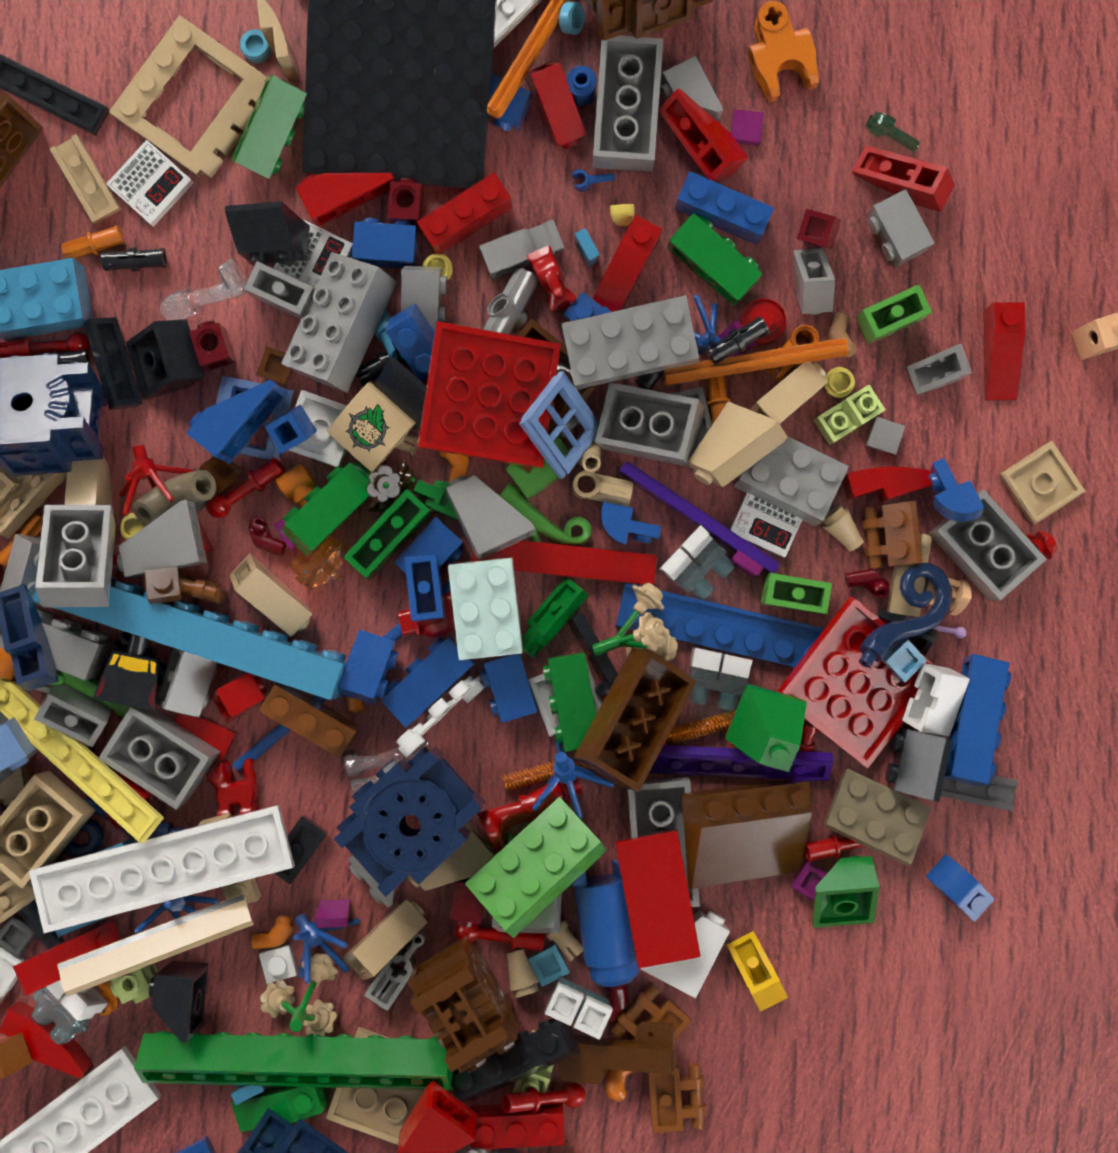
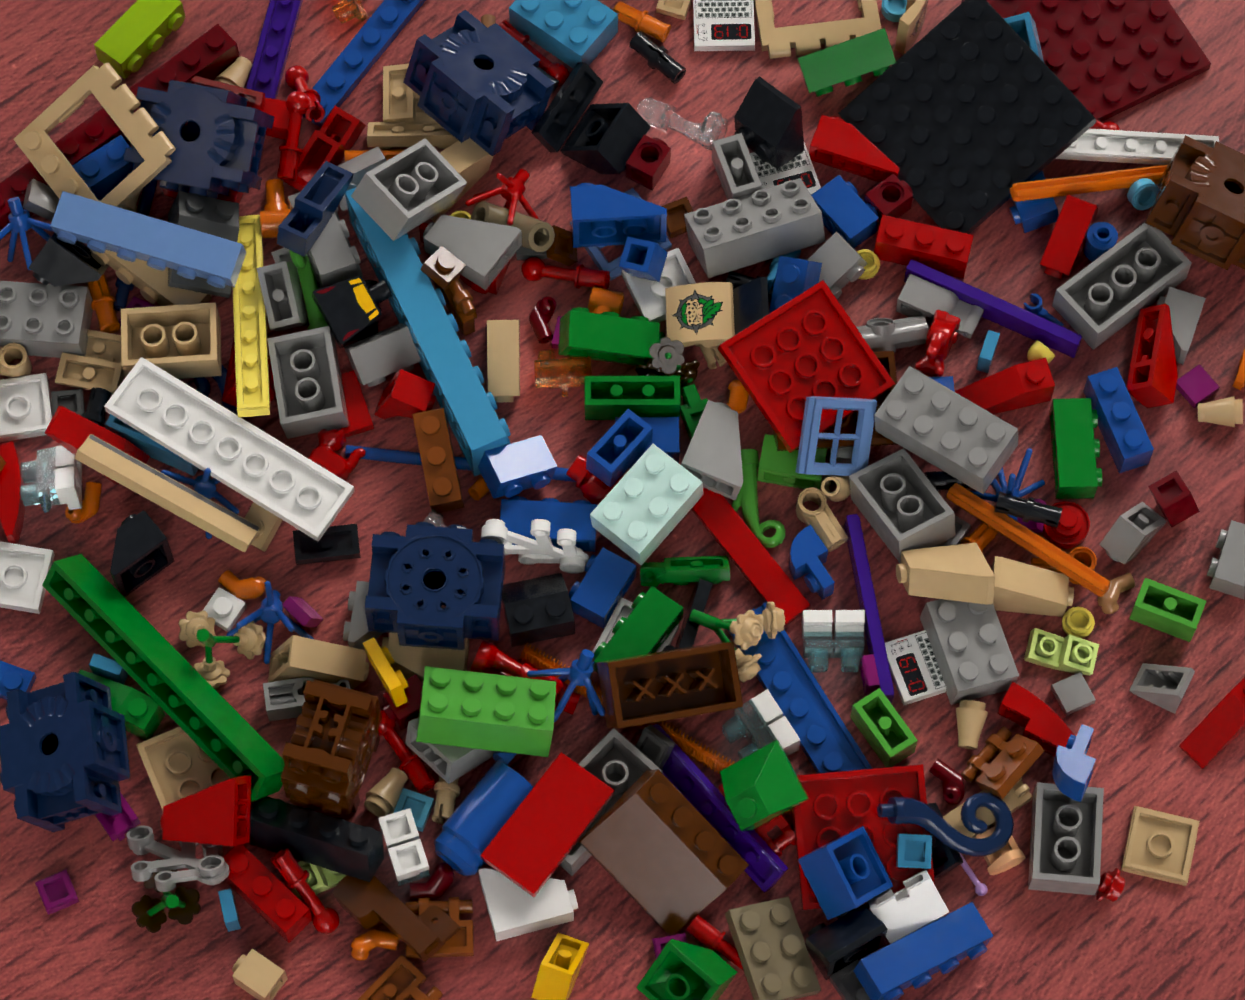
camera: 40 degrees right, 20 degrees down
(134, 984) = (115, 507): yellowish green brick -> none
(448, 909) = (381, 662): none -> yellow plate
(480, 746) = (537, 609): none -> black slope
(563, 209) = (1002, 312): none -> dark purple tile
(666, 767) = (655, 746): none -> dark grey tile
(784, 129) = (1222, 412): none -> tan cone
(878, 723) = (845, 873): none -> blue slope

